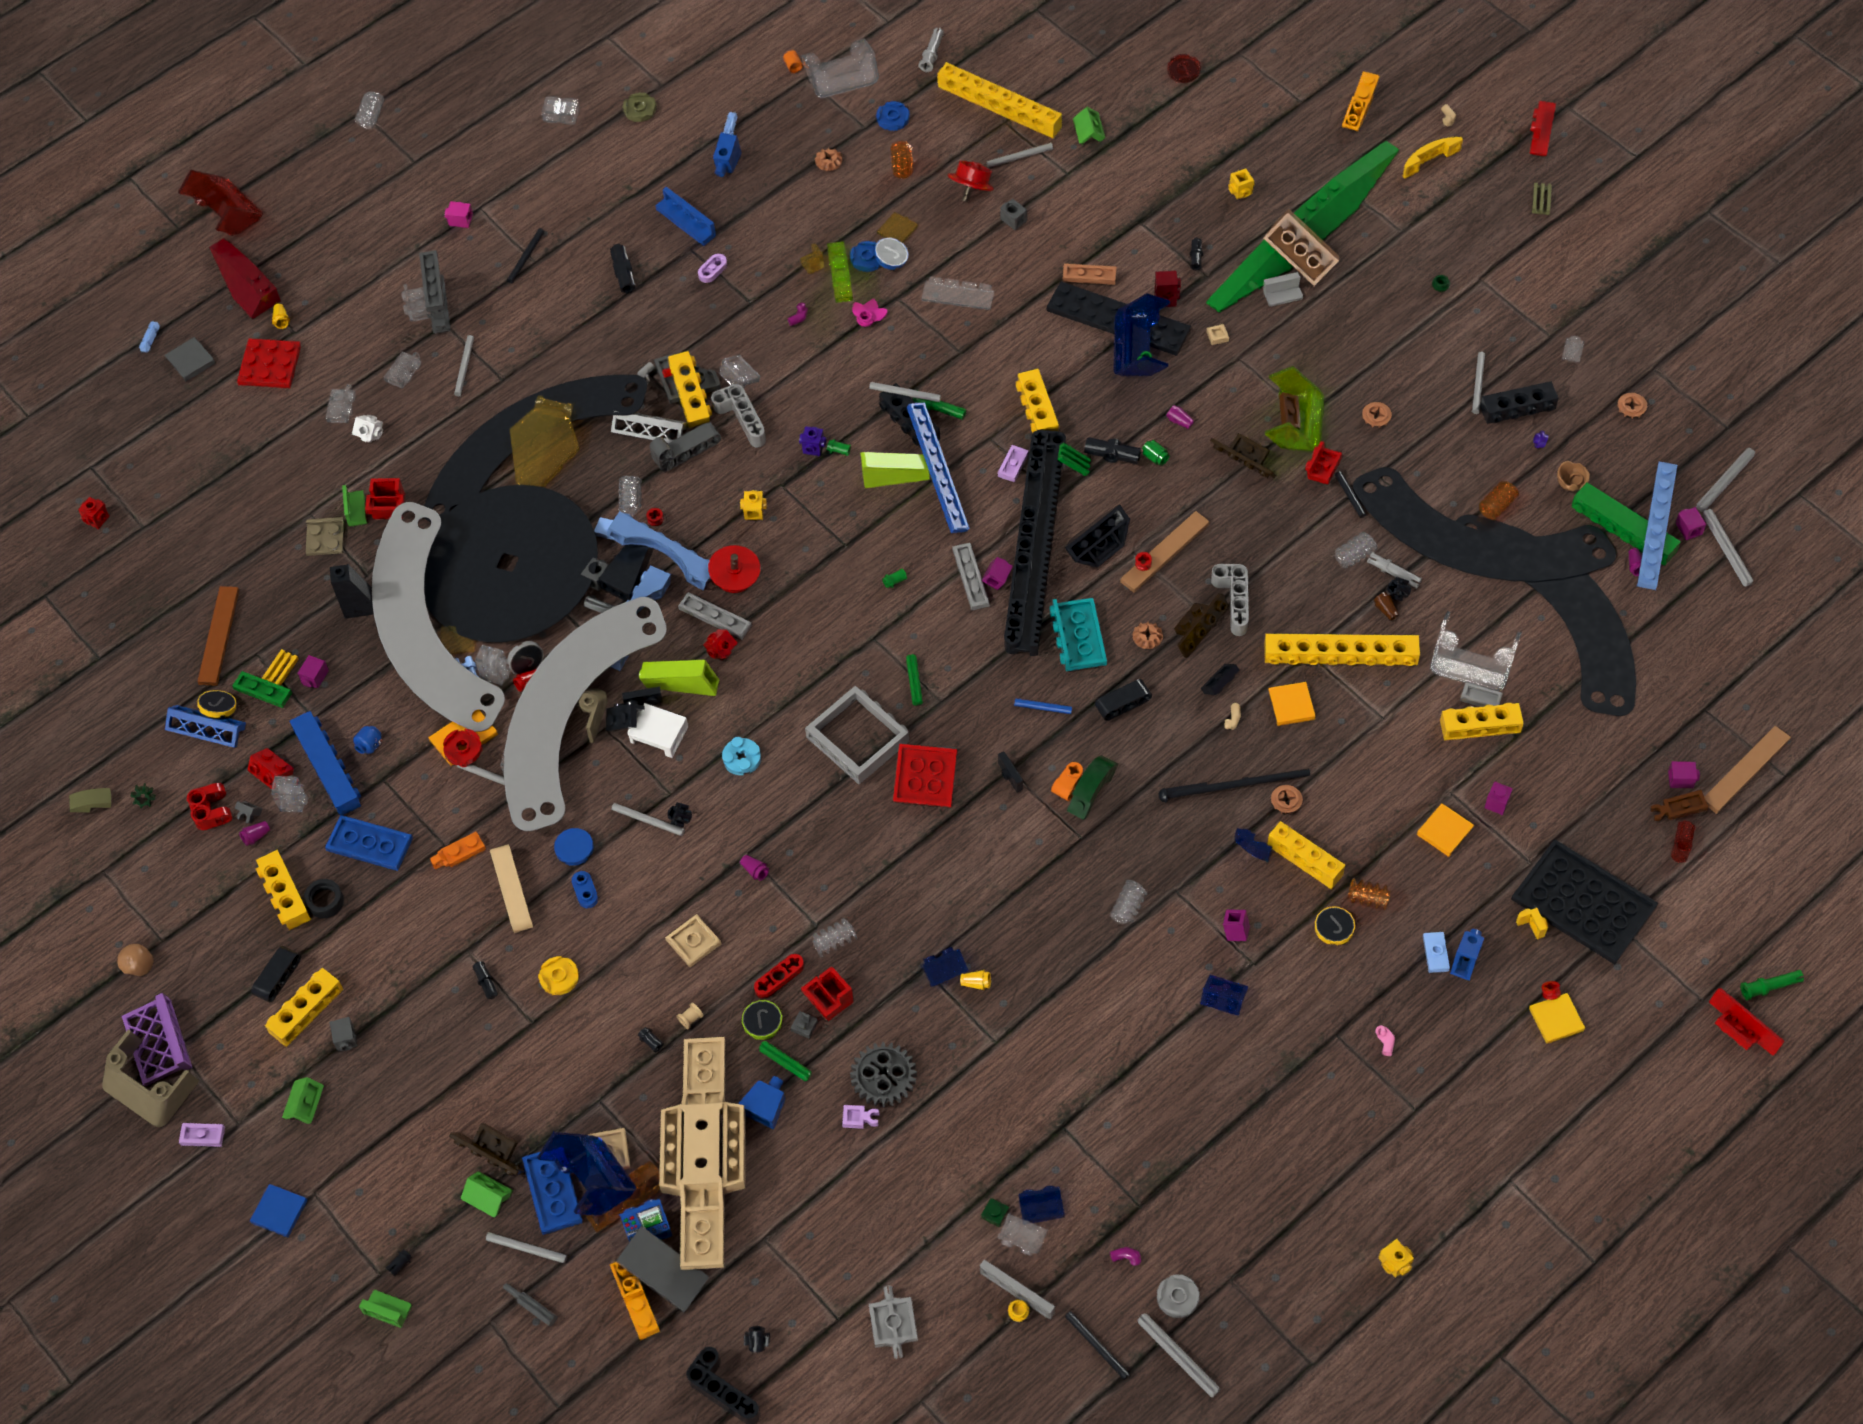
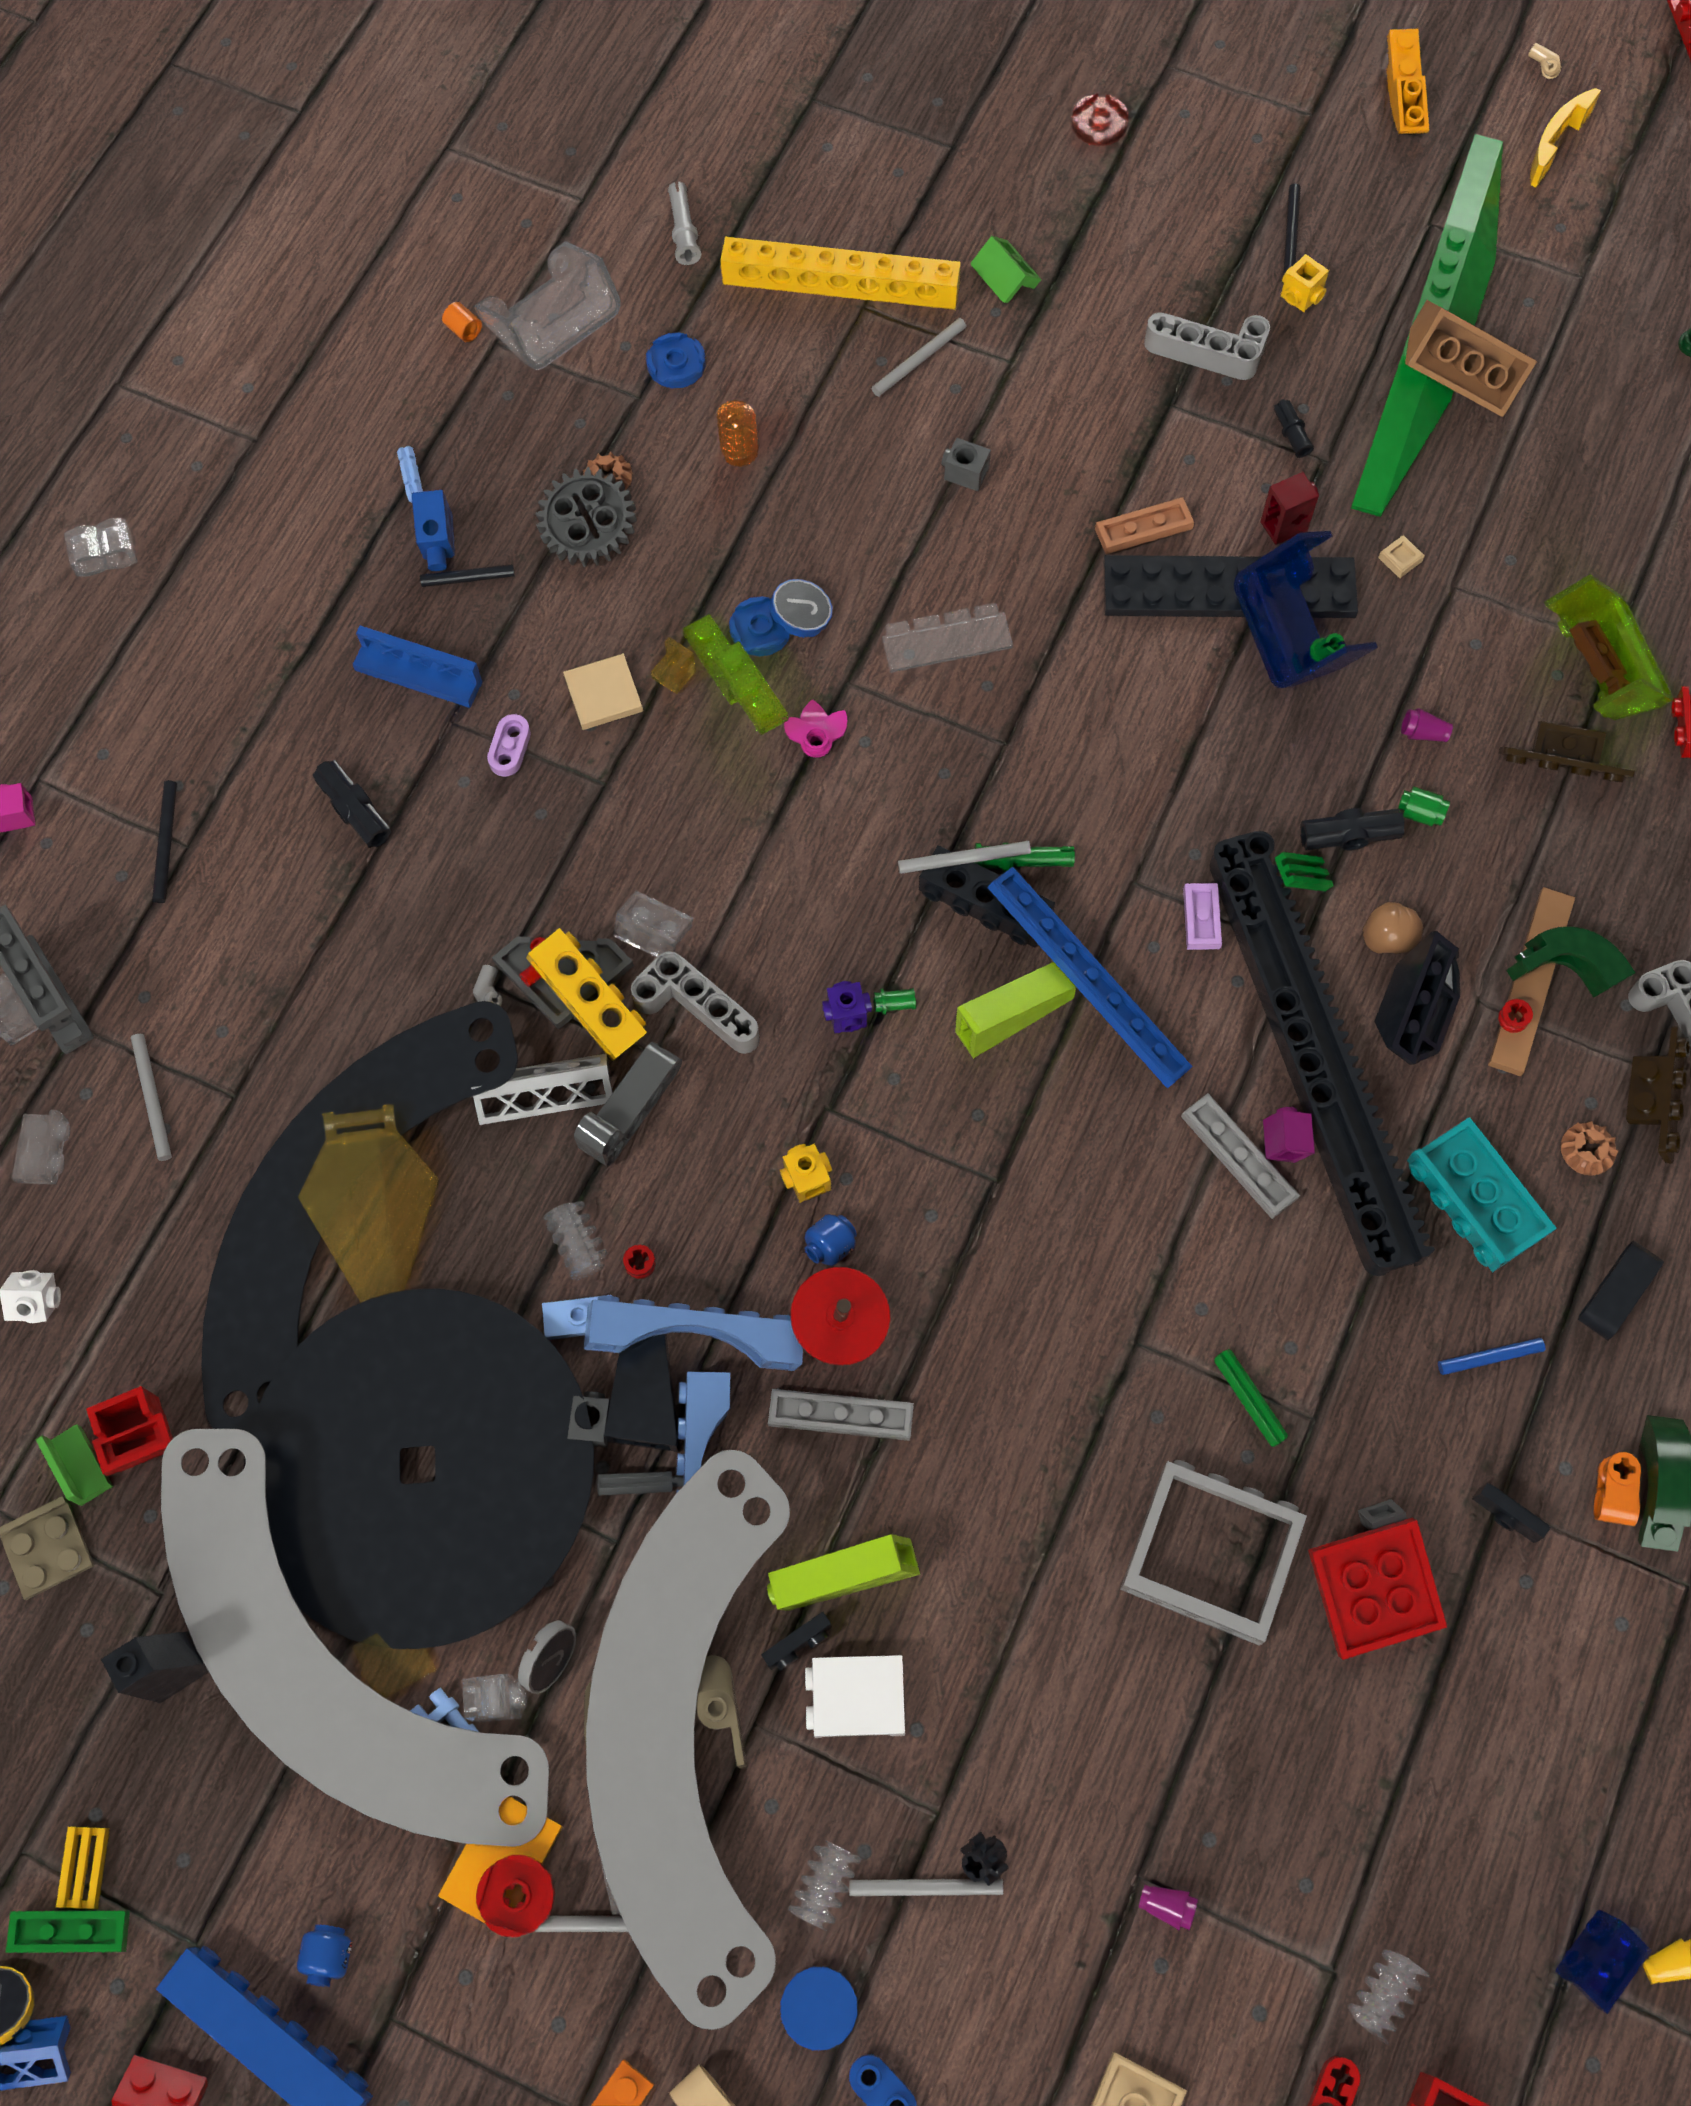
camera: 25 degrees left, 10 degrees up
(313, 672) = (151, 1853): magenta brick -> none
(522, 679) = (566, 1693): red cone -> none
(600, 796) = (824, 1885): none -> clear piece
(622, 716) = (785, 1701): black bracket -> none
(639, 107) = (236, 493): olive tile -> none
(720, 644) = (885, 1475): red brick -> none
(732, 183) = (467, 575): none -> black bar
(741, 746) = (1013, 1696): medium azure plate -> none
(749, 537) = (830, 1239): none -> blue head
(772, 260) = (603, 691): none -> tan tile
(800, 314) = (703, 776): magenta arm -> none
(821, 173) = (560, 530): none -> dark grey gear
(894, 578) = (1116, 1214): green pin -> none
(897, 227) = (784, 557): clear yellow piece -> none
(973, 176) = (872, 422): red piece -> none
(1036, 401) = (1161, 752): yellow brick -> none
(1105, 500) = (1392, 929): none -> medium nougat hair
(1174, 200) = (1207, 346): none -> light grey beam
(1191, 541) = (1583, 951): none -> dark green arch
(1258, 152) = (1292, 226): none -> black bar
(1282, 289) = (1461, 442): light grey panel -> none

